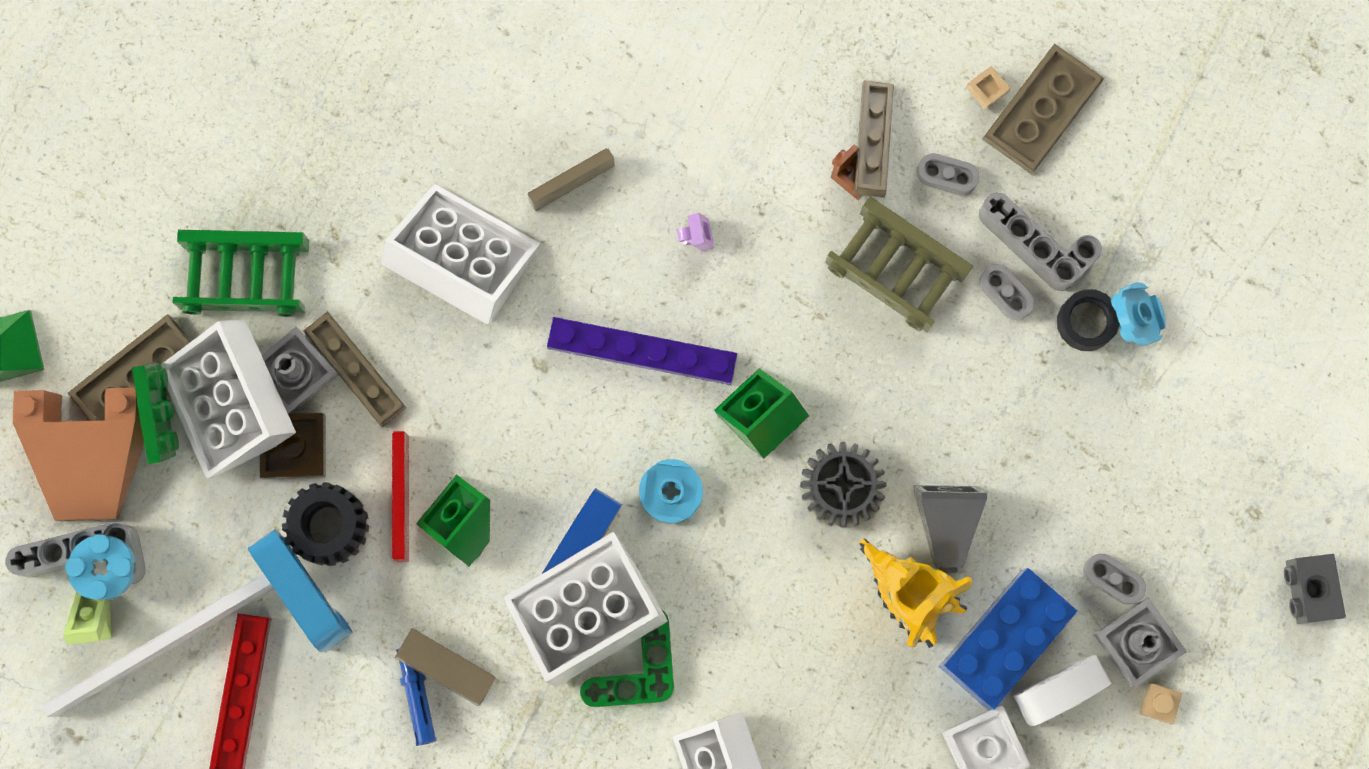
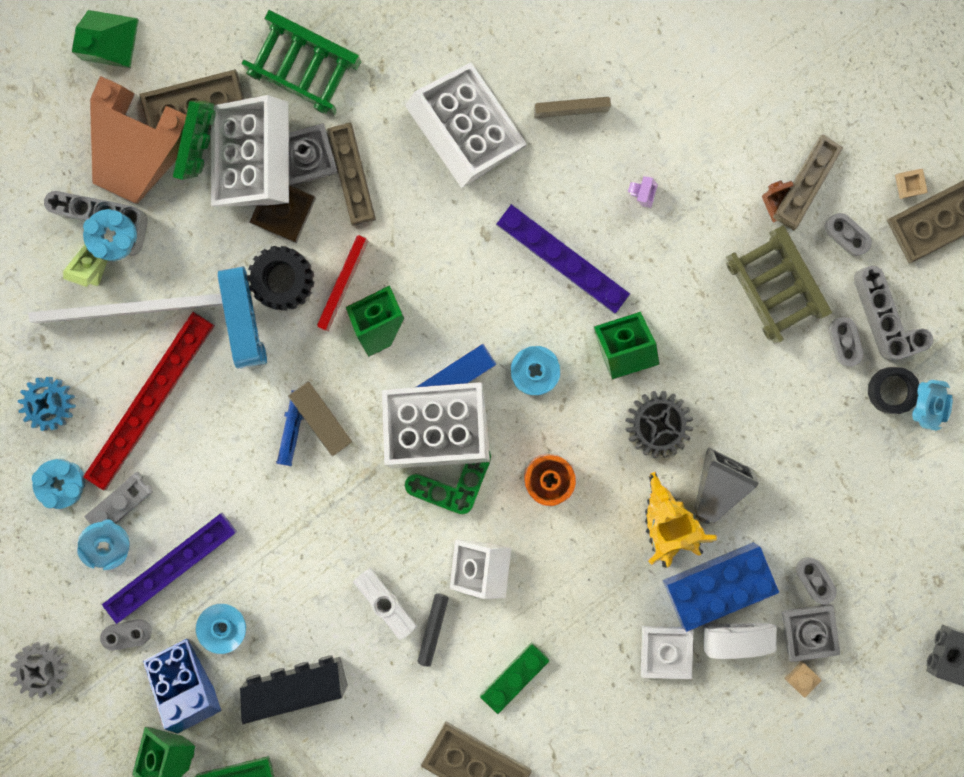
camera: 30 degrees right, 10 degrees up
(758, 593) = (558, 490): none -> orange brick

